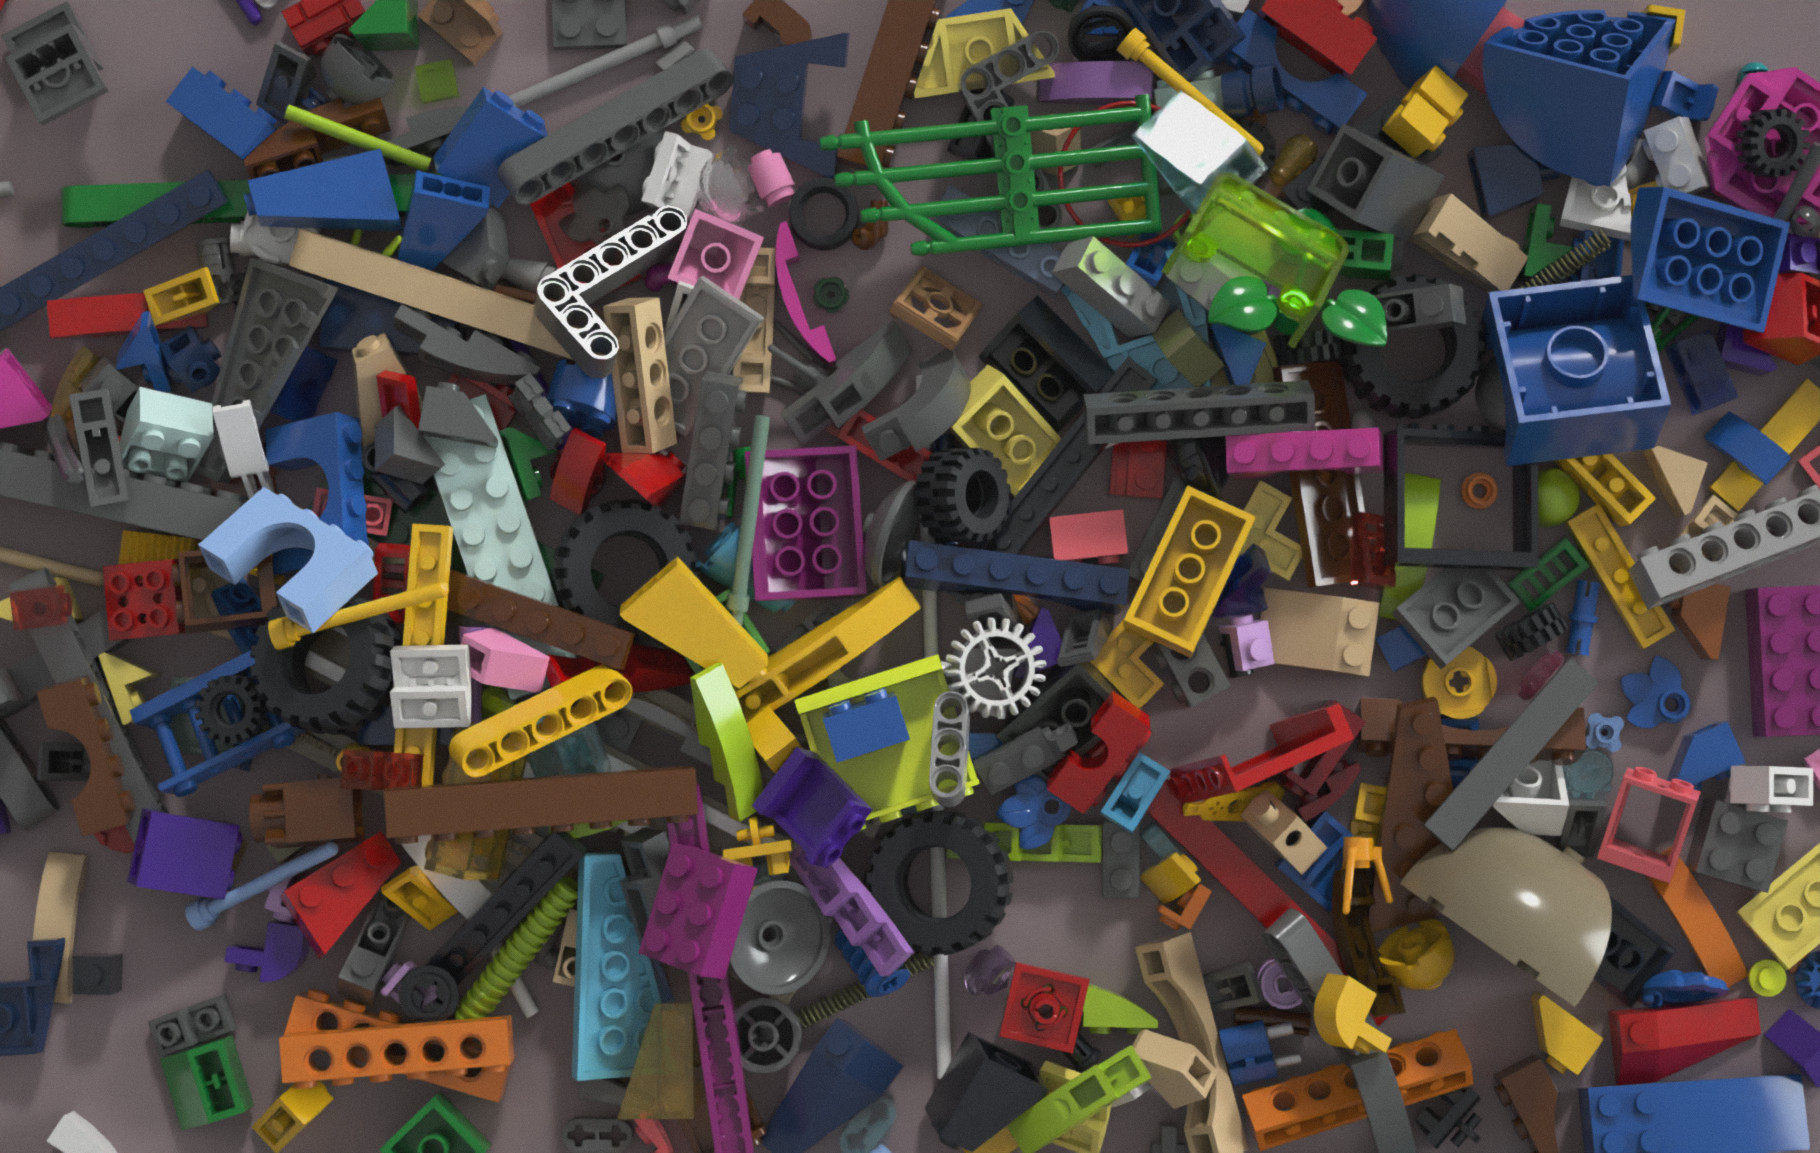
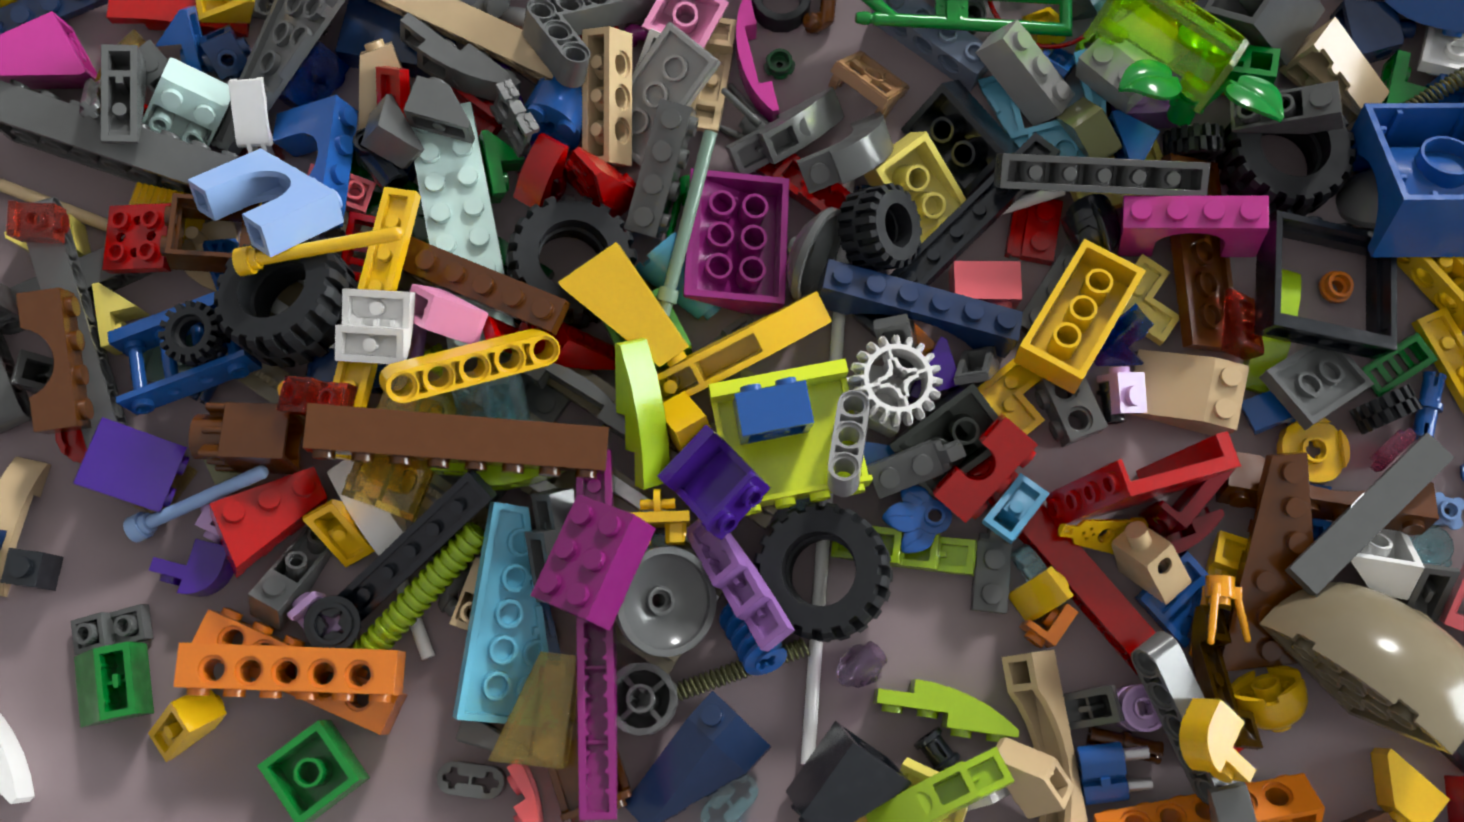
camera: 10 degrees right, 10 degrees down
(1059, 1030) = (913, 702): red plate -> none
(1556, 497) = (1411, 299): lime hair -> none

